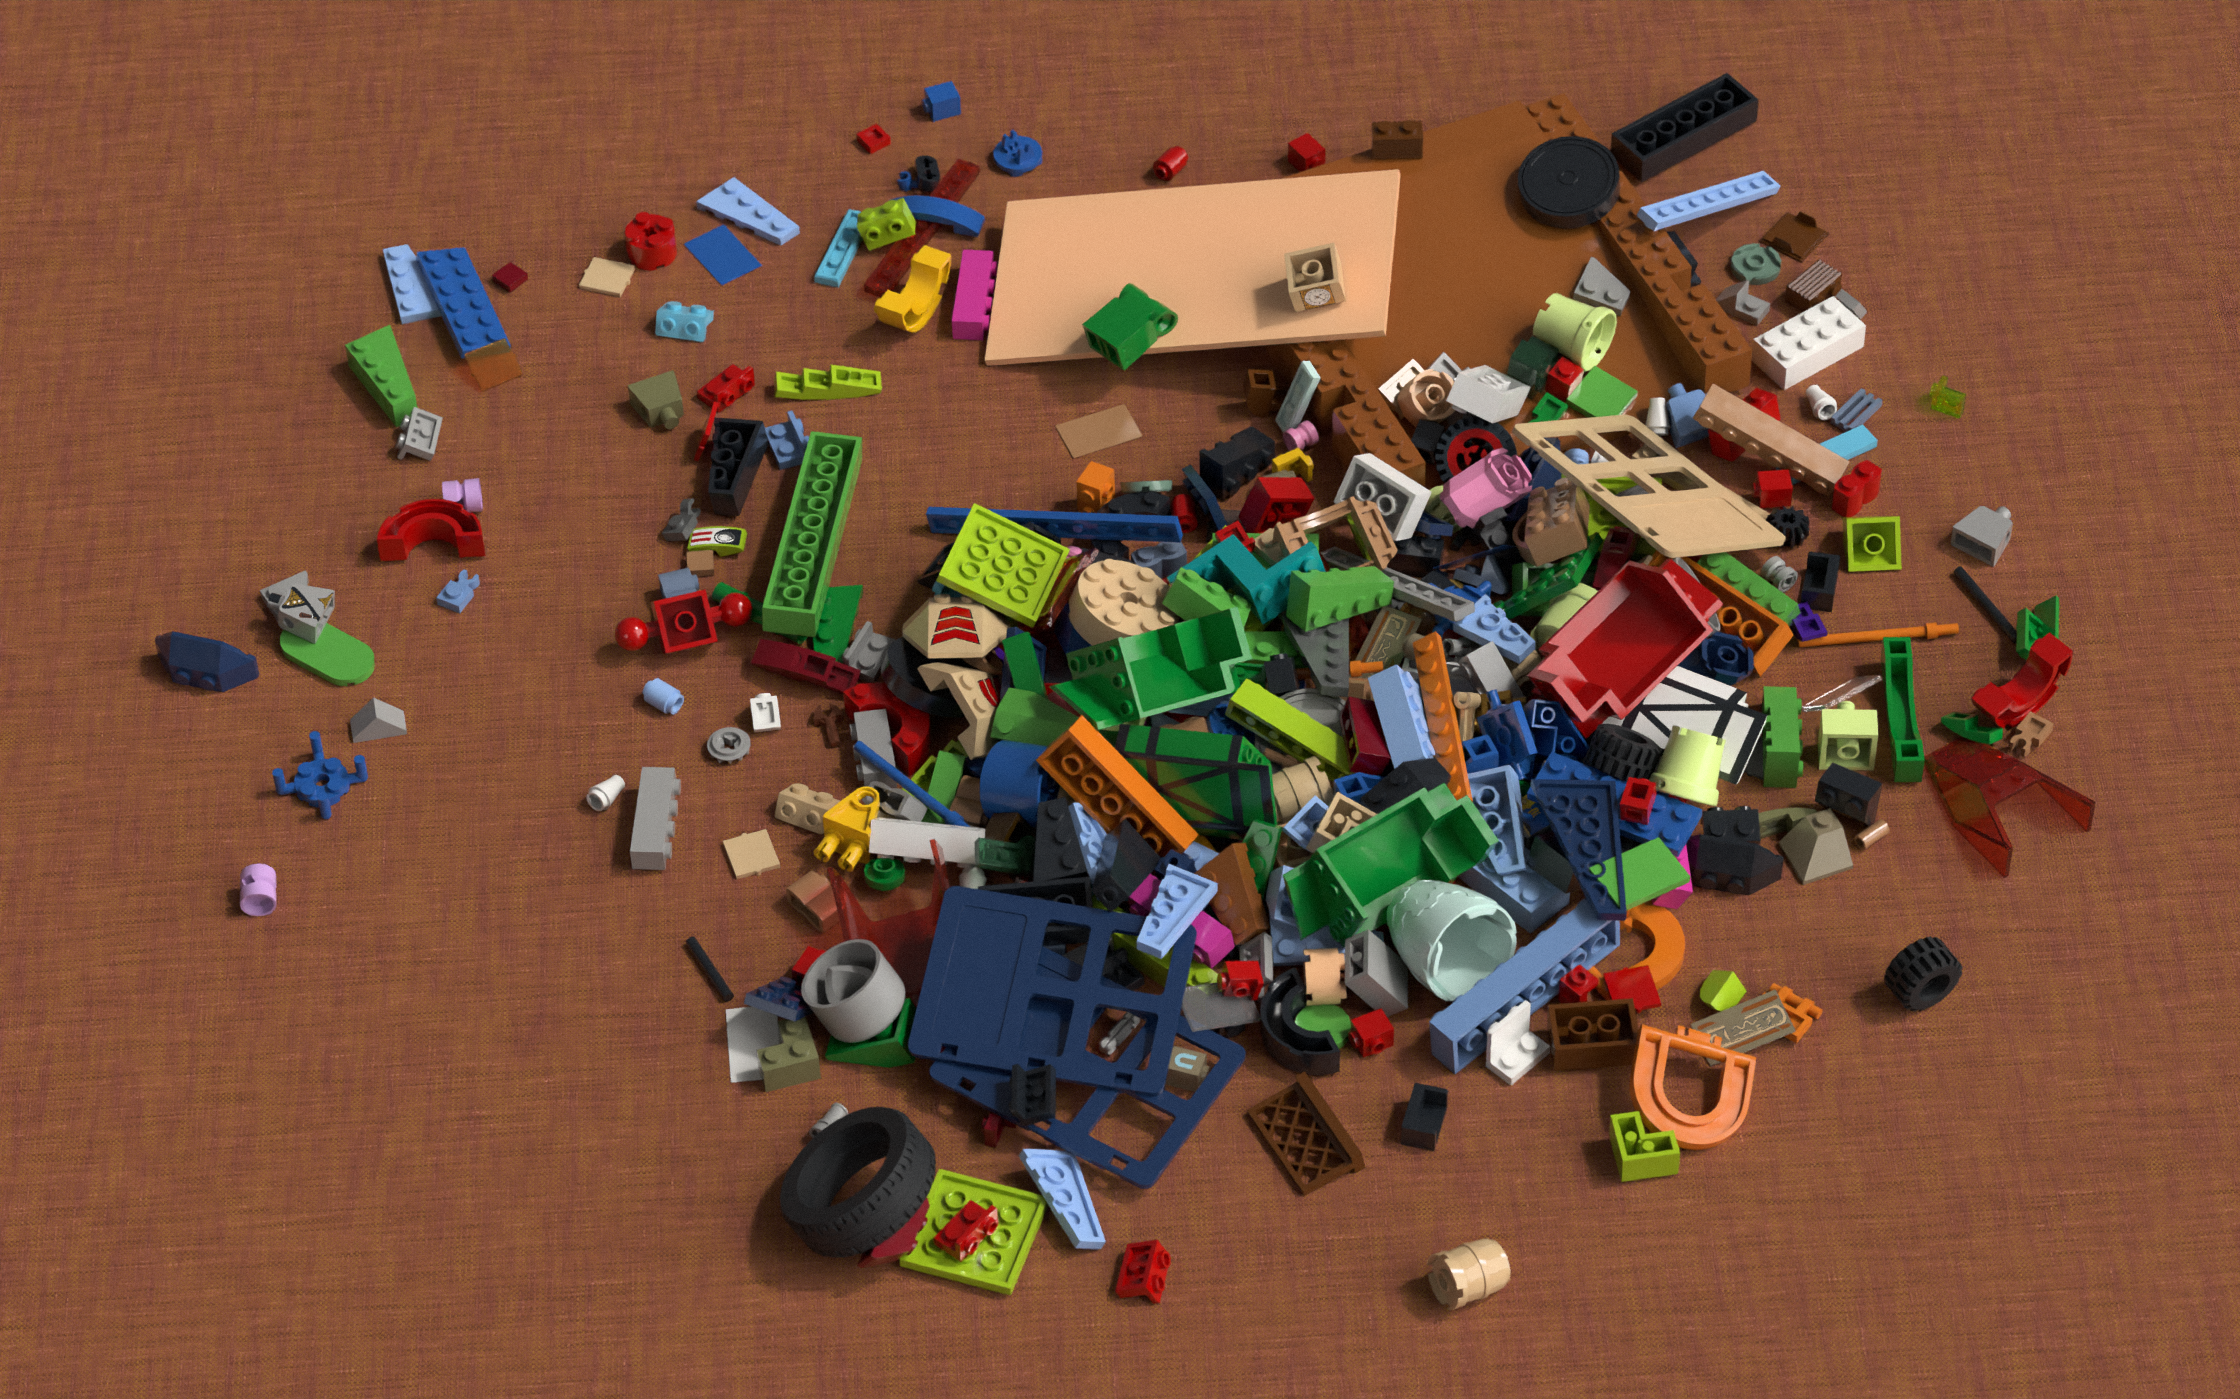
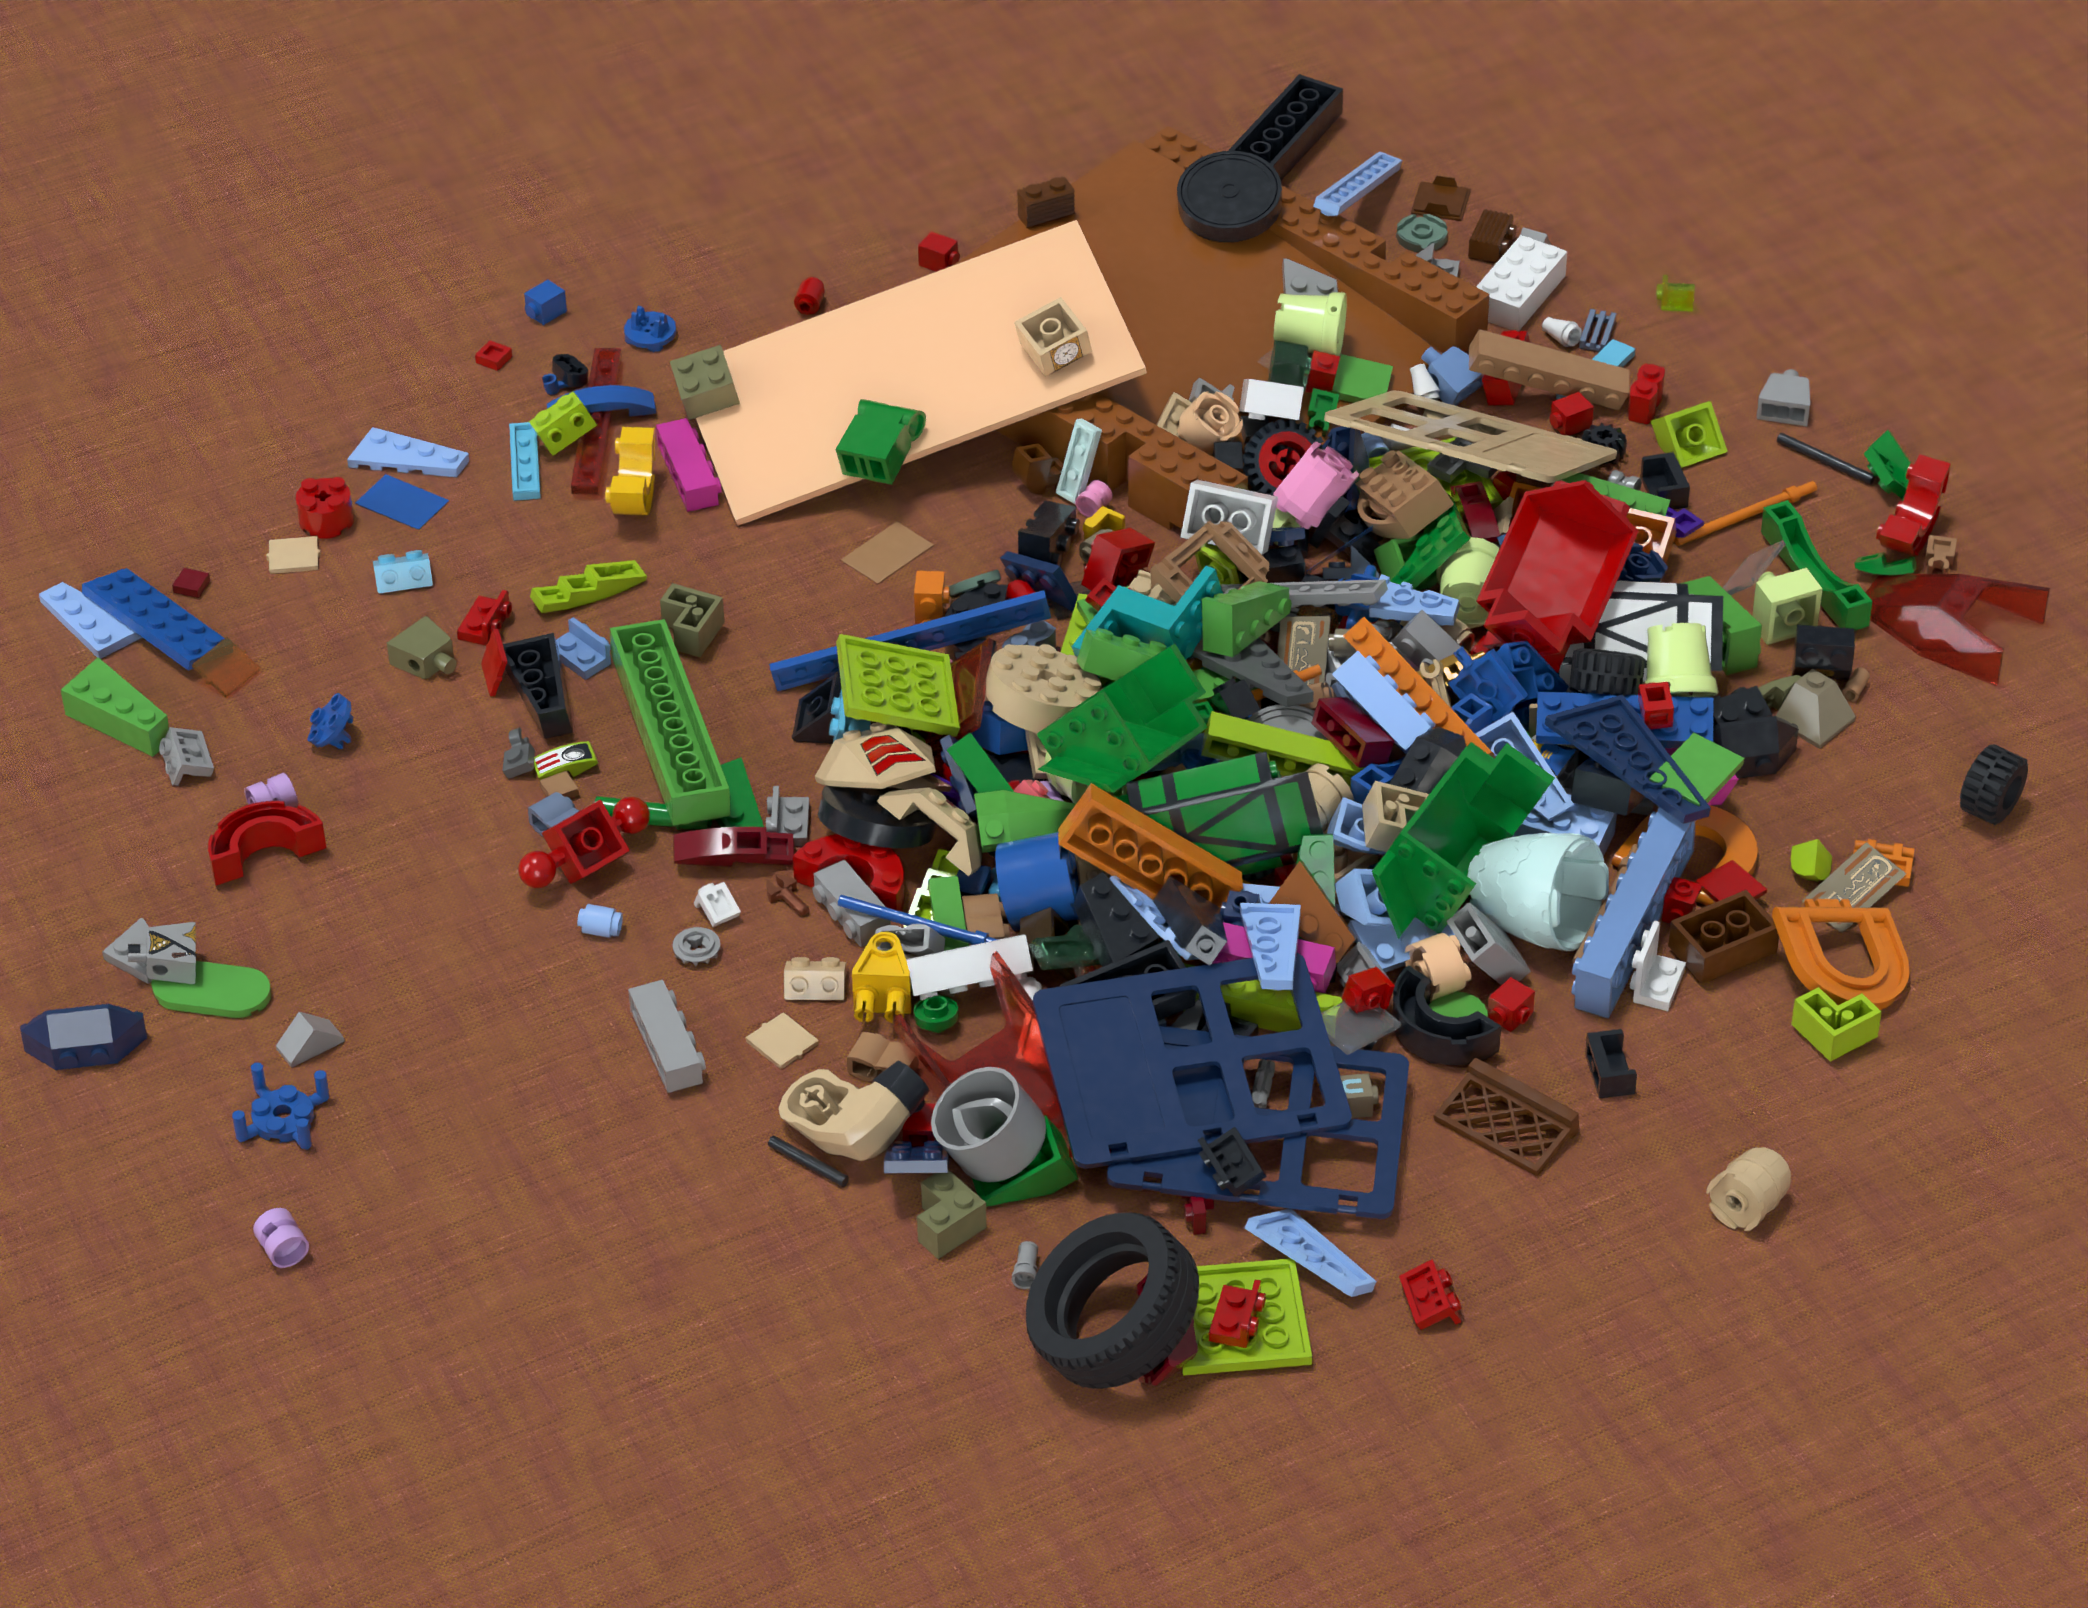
camera: 25 degrees left, 5 degrees down
(458, 594) = (319, 892): medium blue plate -> none
(544, 443) = (330, 723): none -> blue plate
(603, 794) = (596, 1030): white cone -> none
(747, 1032) = (891, 1215): white sticker -> none
(755, 947) = (853, 1119): none -> tan piece
(891, 443) = (693, 617): none -> olive brick
(1017, 223) = (704, 382): none -> olive brick

